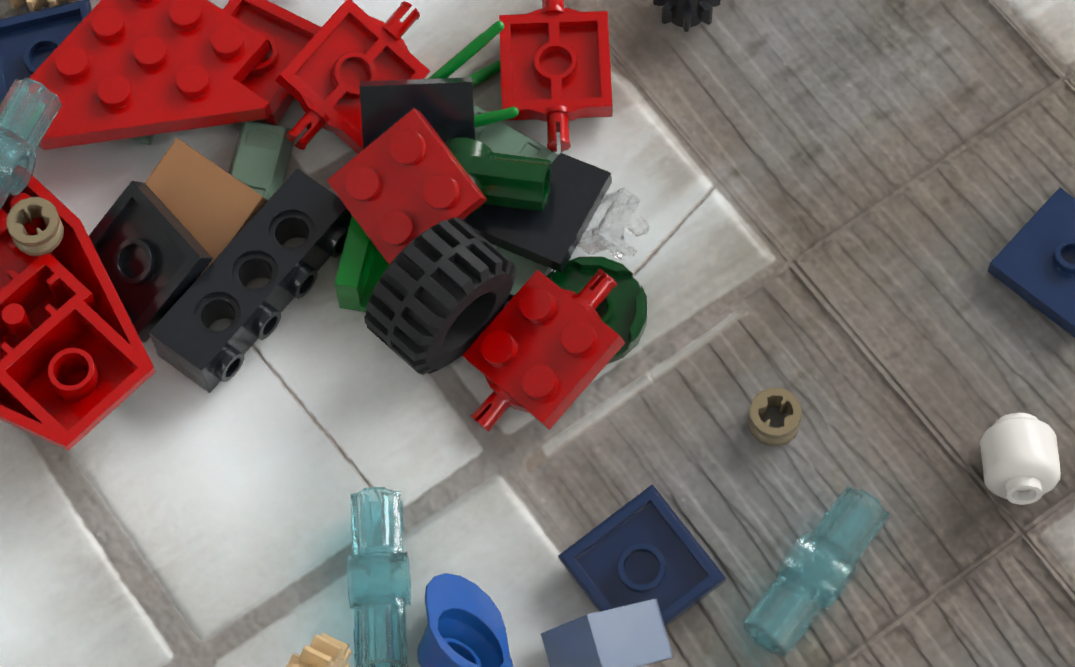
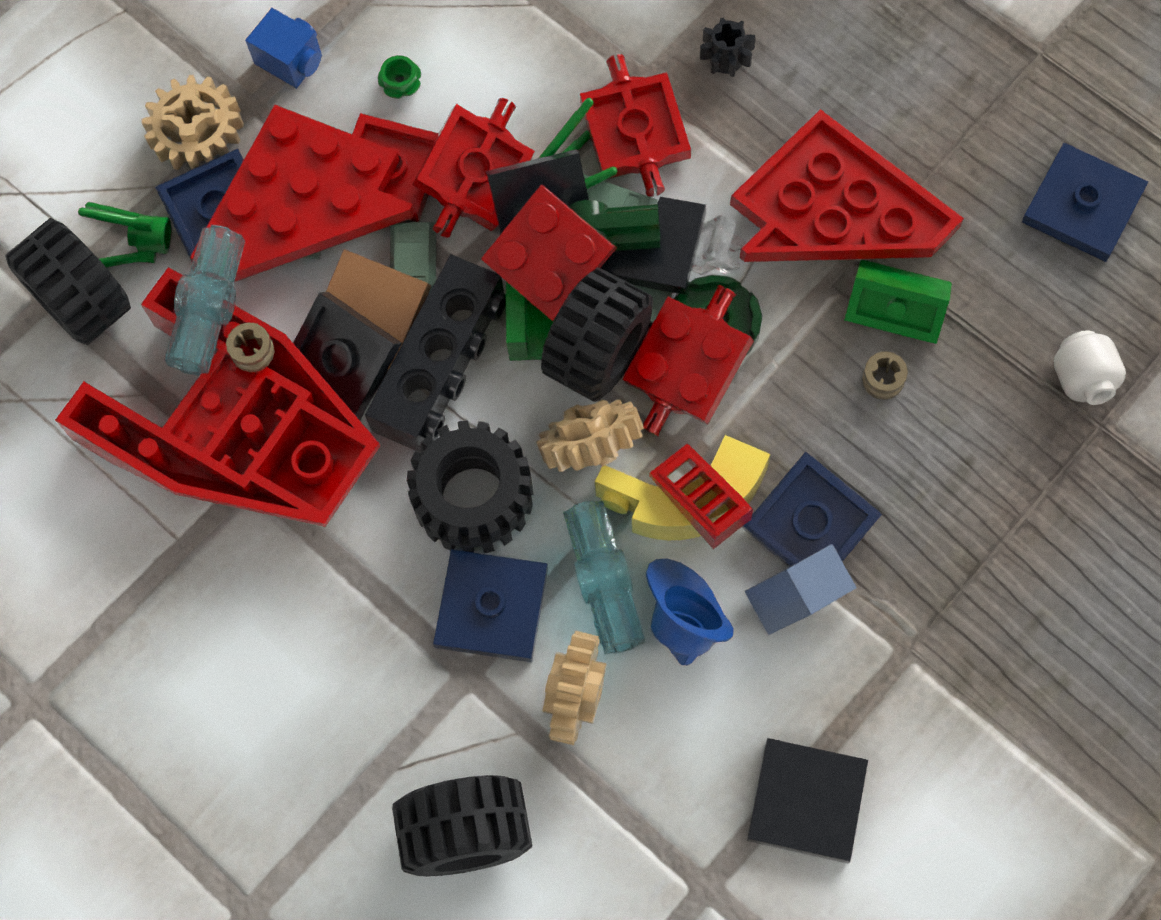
camera: 10 degrees left, 5 degrees up
(241, 586) = (491, 605): none -> dark blue plate
(244, 400) = (462, 451): none -> black tyre
(403, 411) = (590, 435): none -> tan gear
(509, 522) = (656, 514): none -> light yellow arch
(532, 547) = (713, 532): none -> red slope
(772, 202) = (838, 201): none -> red wing
(812, 333) = (898, 301): none -> green panel
(816, 571) = (951, 493): clear light blue piece -> none

